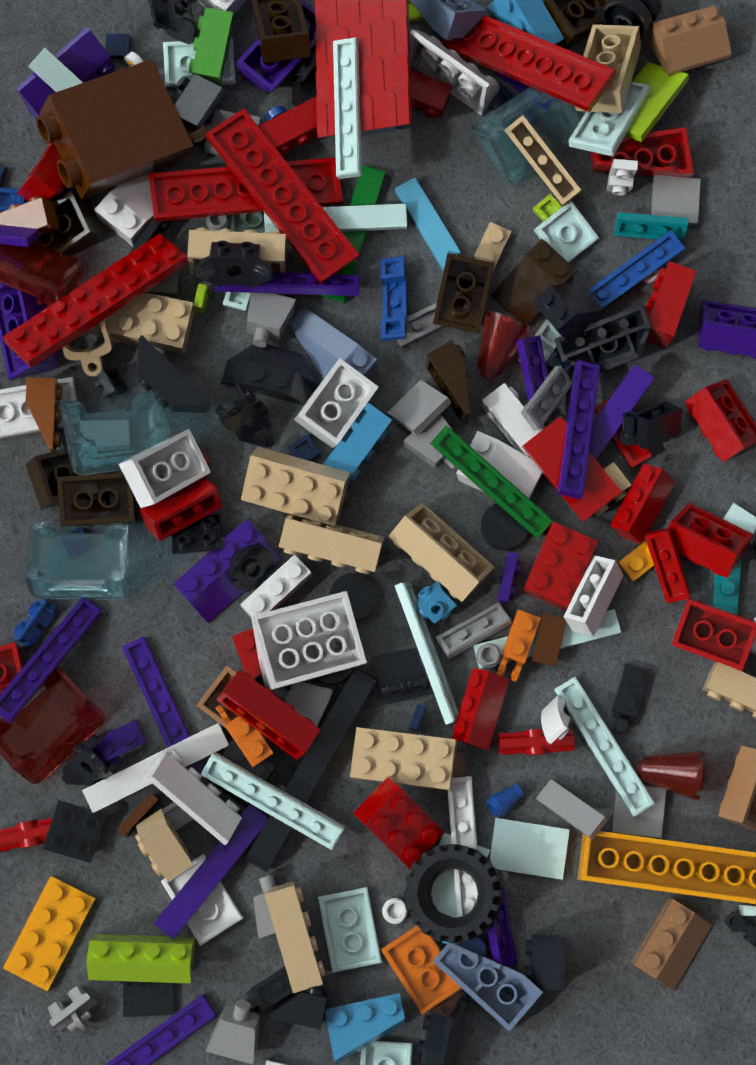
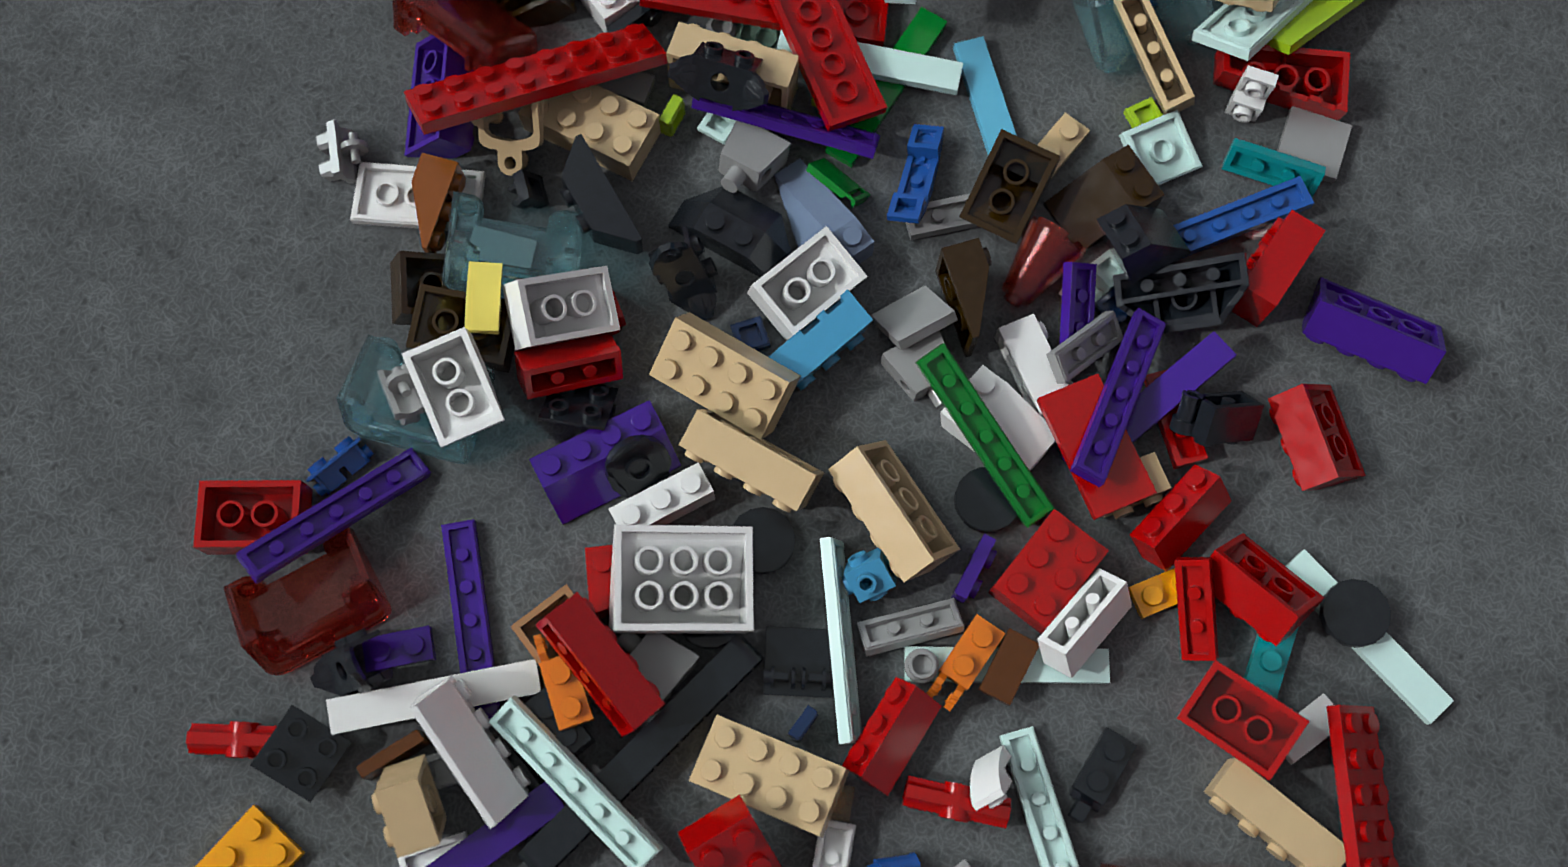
camera: 20 degrees right, 5 degrees down
(68, 560) = (401, 394): none -> light grey hips
(108, 476) = (483, 297): none -> light yellow slope
(108, 548) = (454, 386): none -> white slope
(336, 317) = (837, 181): none -> green piece

